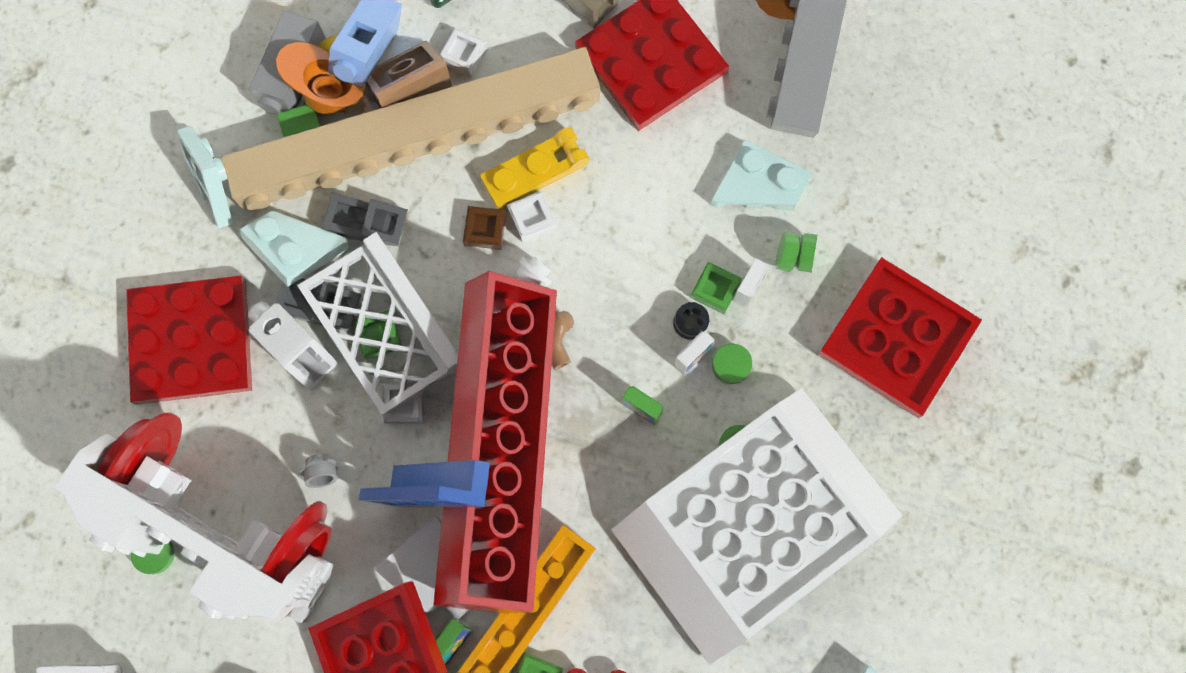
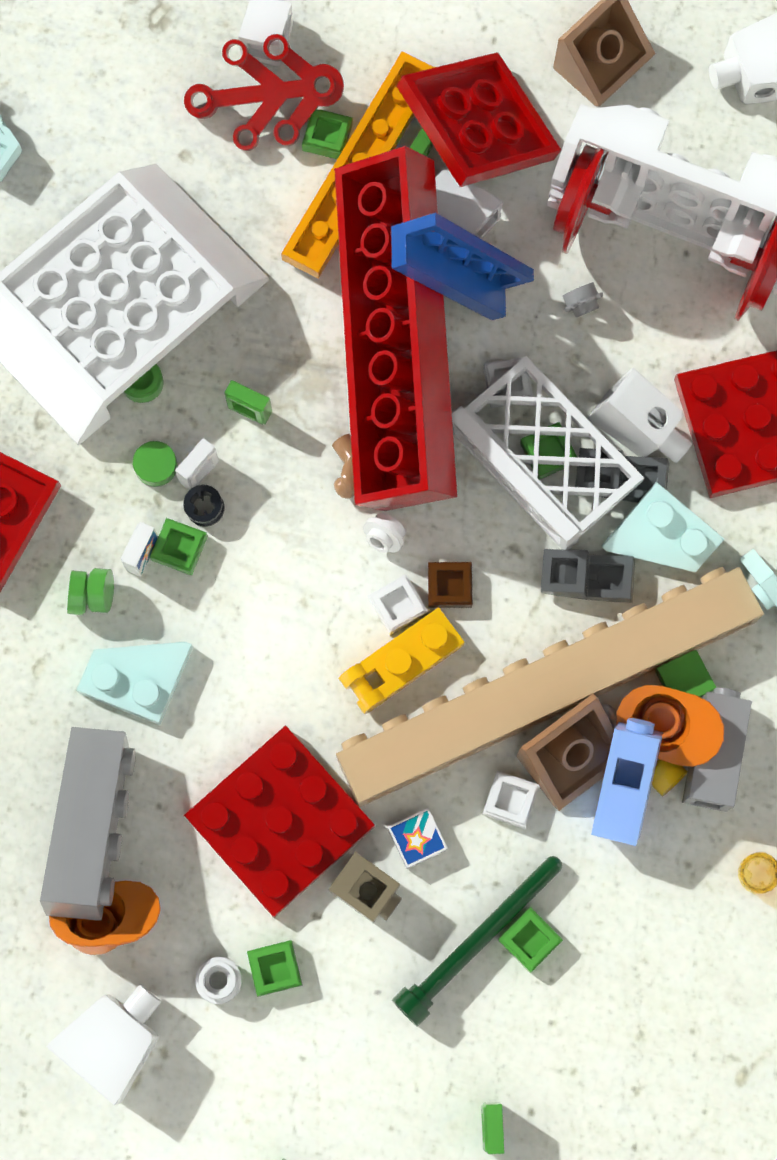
camera: 170 degrees right, 0 degrees up
(542, 31) = (417, 838): none -> tile

